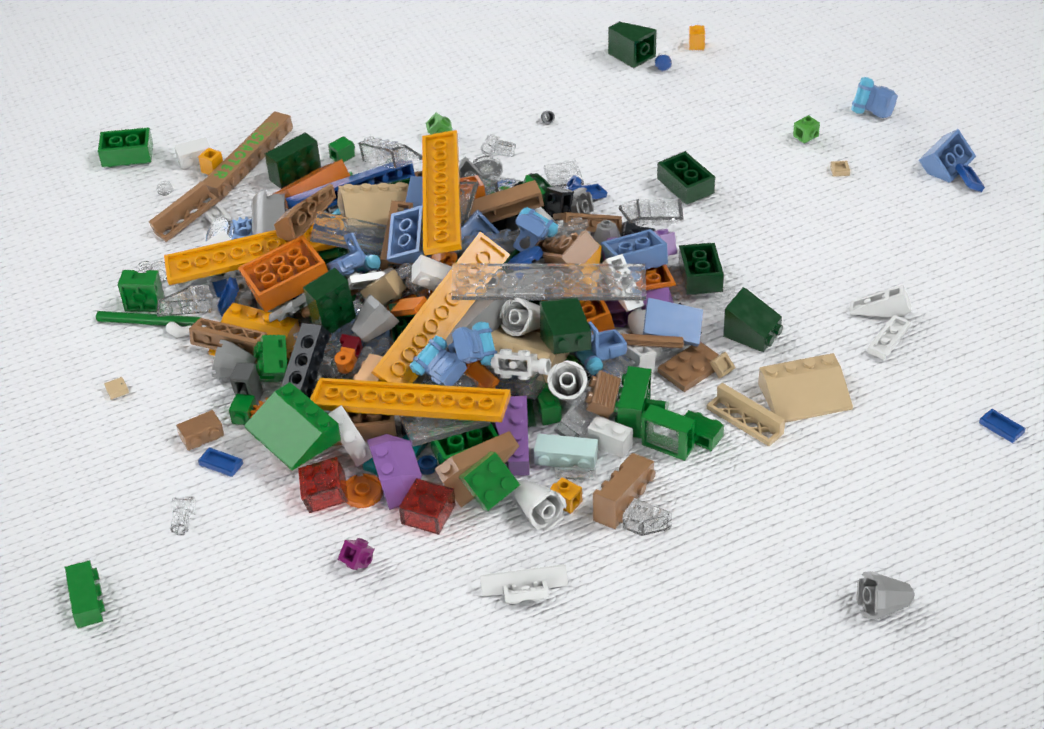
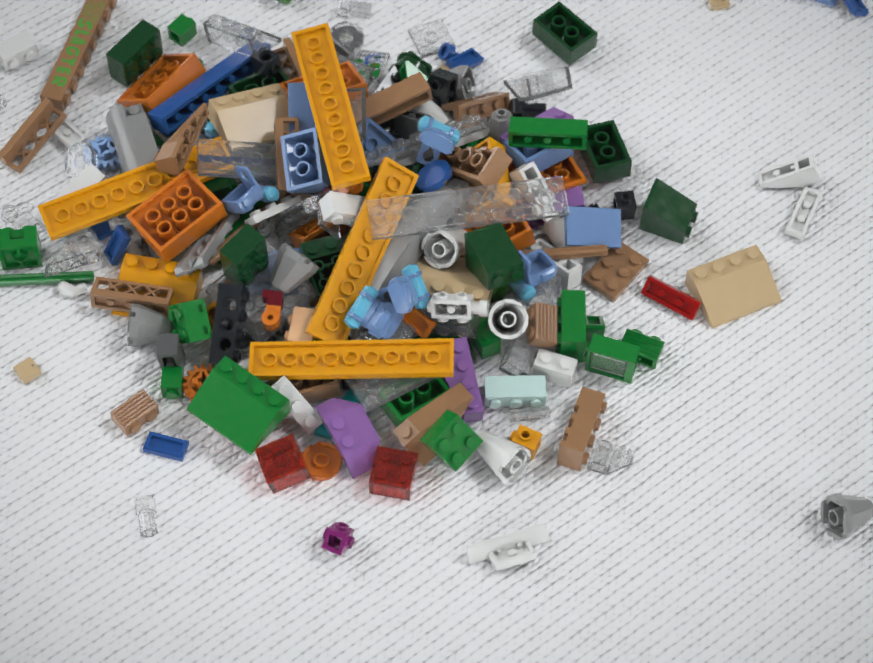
camera: 15 degrees left, 15 degrees up
(85, 594) = (76, 620): green brick -> none
(210, 160) = (41, 63): light orange brick -> none
(385, 288) = (289, 226): tan brick -> none
(402, 170) = (266, 62): none -> black brick
(408, 306) = (326, 249): orange tile -> none
(427, 464) = (379, 421): blue tile -> none
(643, 236) = (548, 133): none -> green brick
(711, 313) = (626, 202): none -> black brick
(722, 365) = (647, 266): tan tile -> none
(740, 386) = (671, 297): none -> red plate
(750, 412) = (684, 321): tan fence -> none

